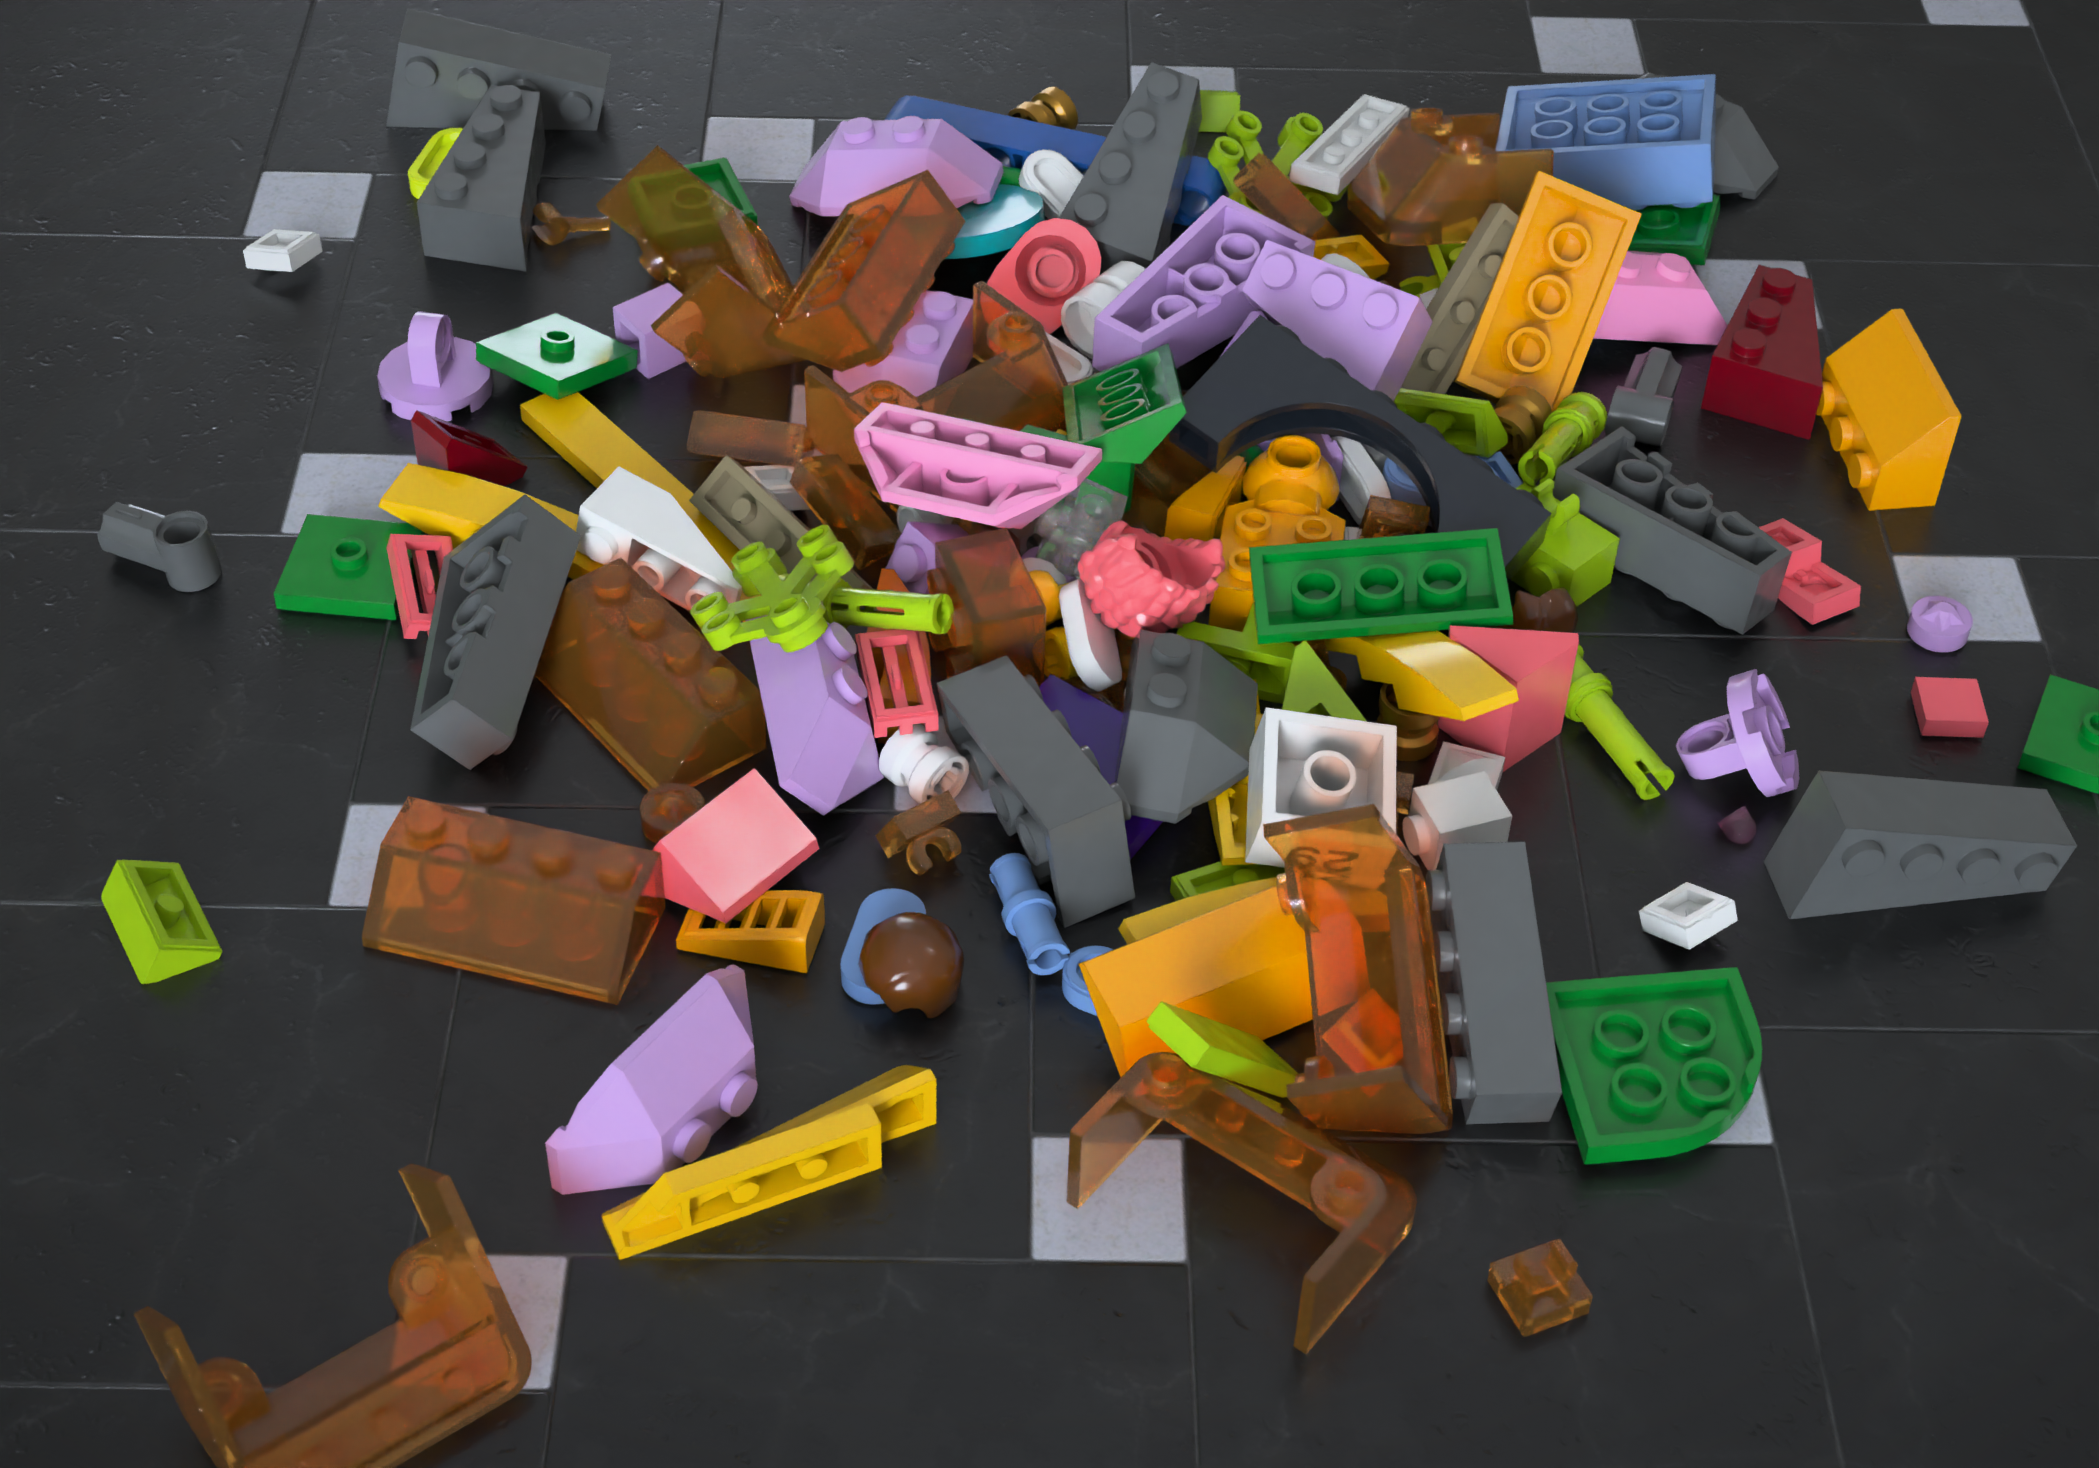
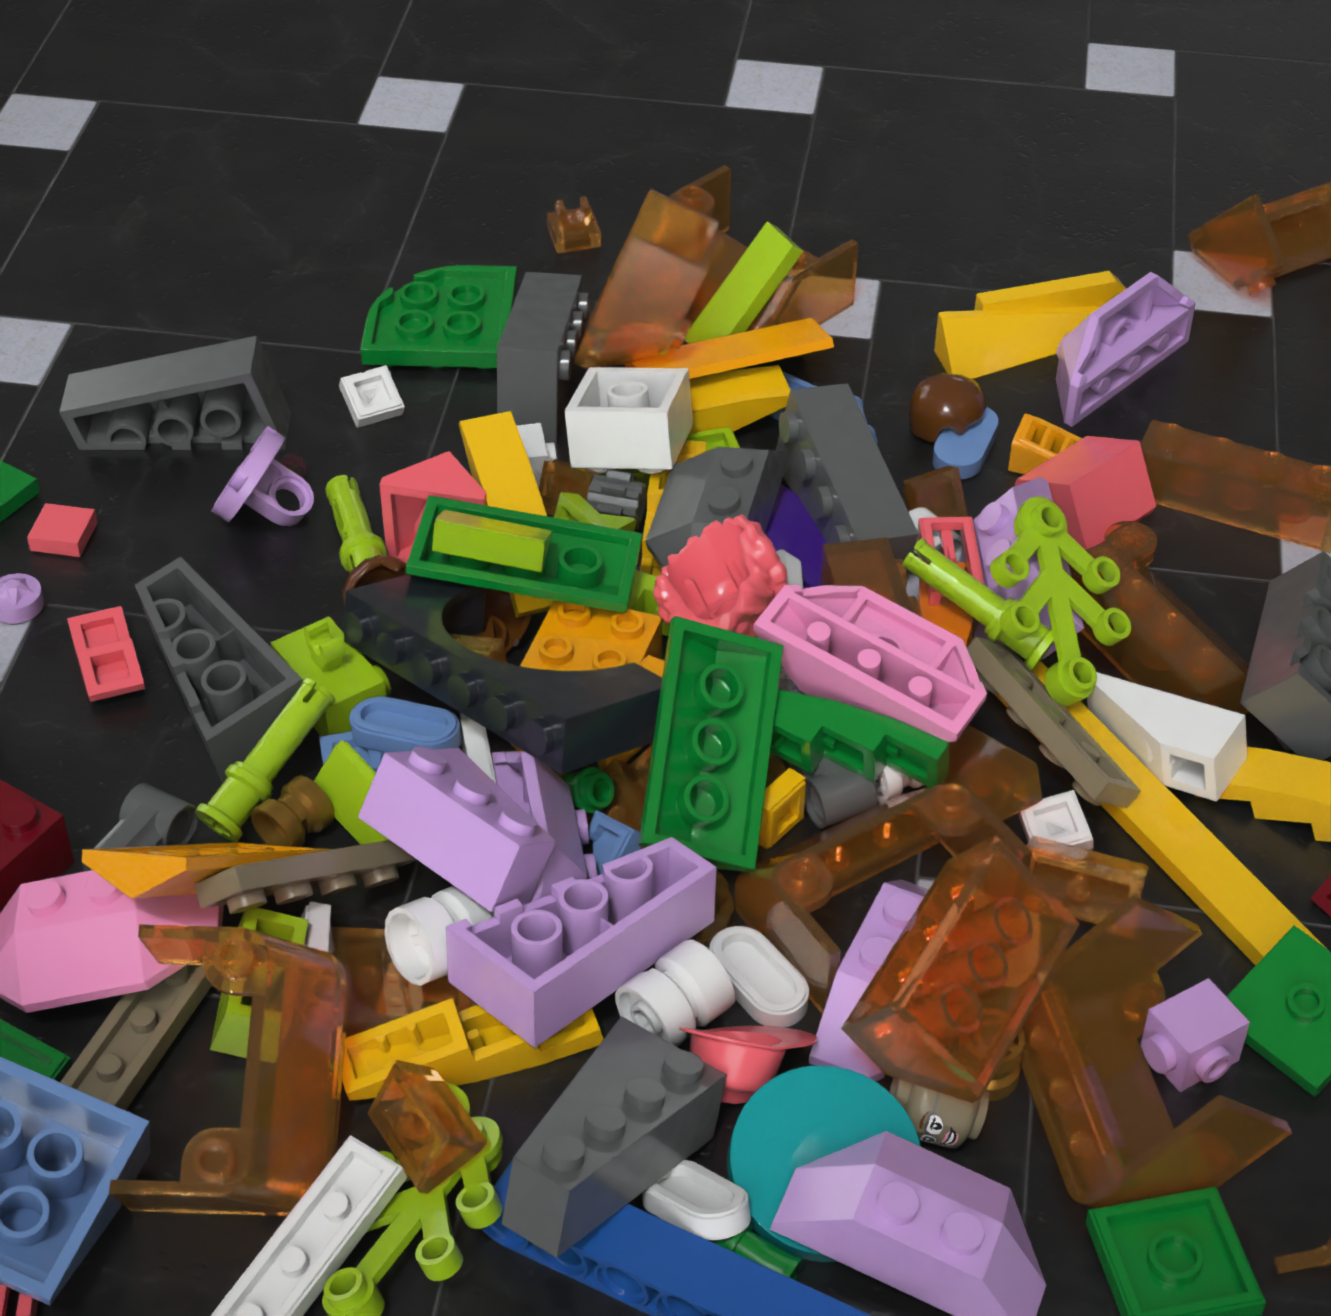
camera: 170 degrees left, 0 degrees up
(1416, 555) = (491, 540): none -> lime slope

